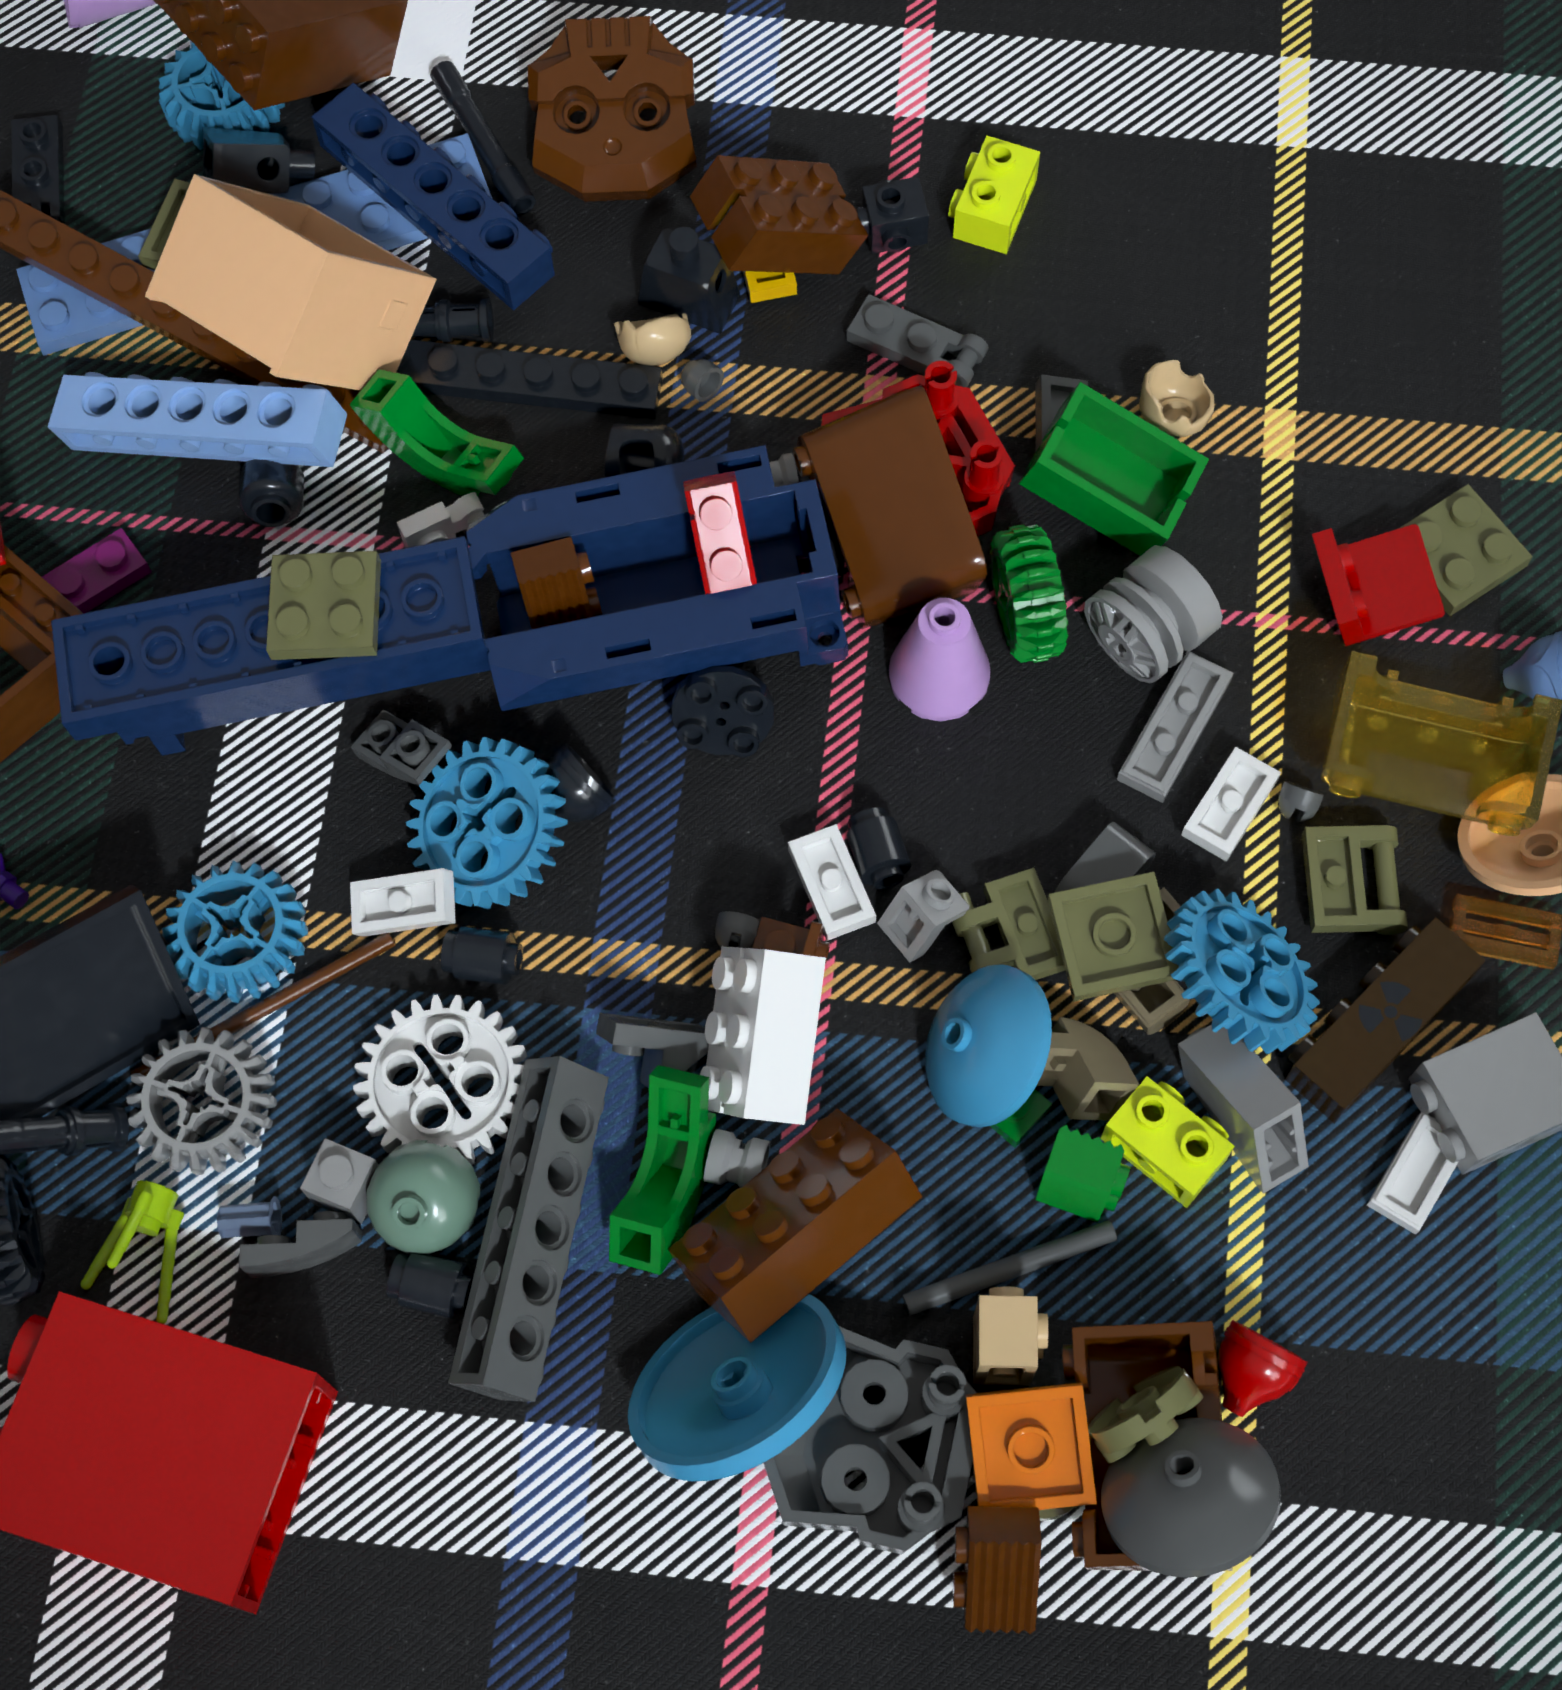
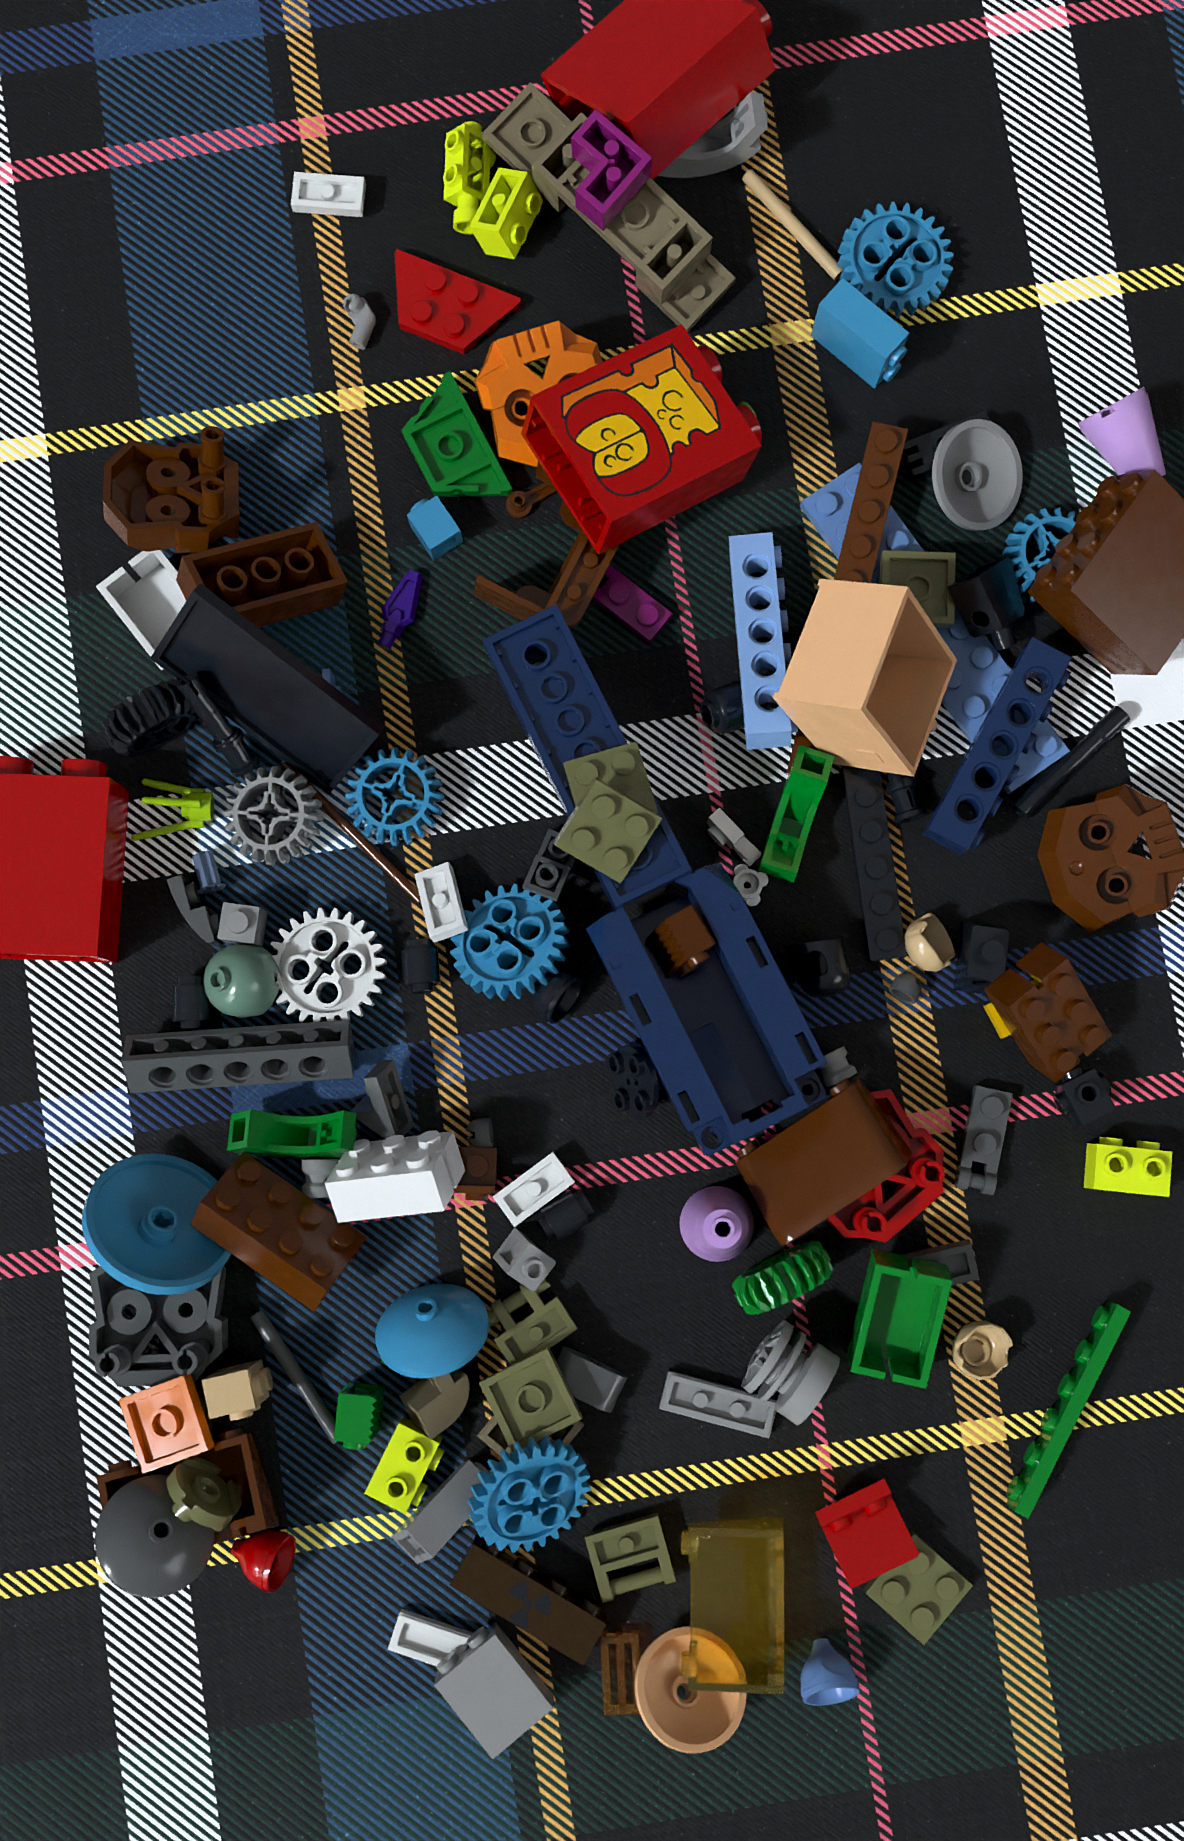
camera: 75 degrees right, 15 degrees up
(87, 139) = (989, 470): none -> light grey dish
(376, 610) = (607, 830): none -> olive plate
(719, 532) = (743, 1050): brick -> none
(1000, 1568) = (92, 1418): reddish brown brick -> none
(1231, 804) = (665, 1458): white plate -> none
(1271, 327) = (1059, 1421): none -> green plate
(1301, 798) = (681, 1506): dark grey hinge -> none

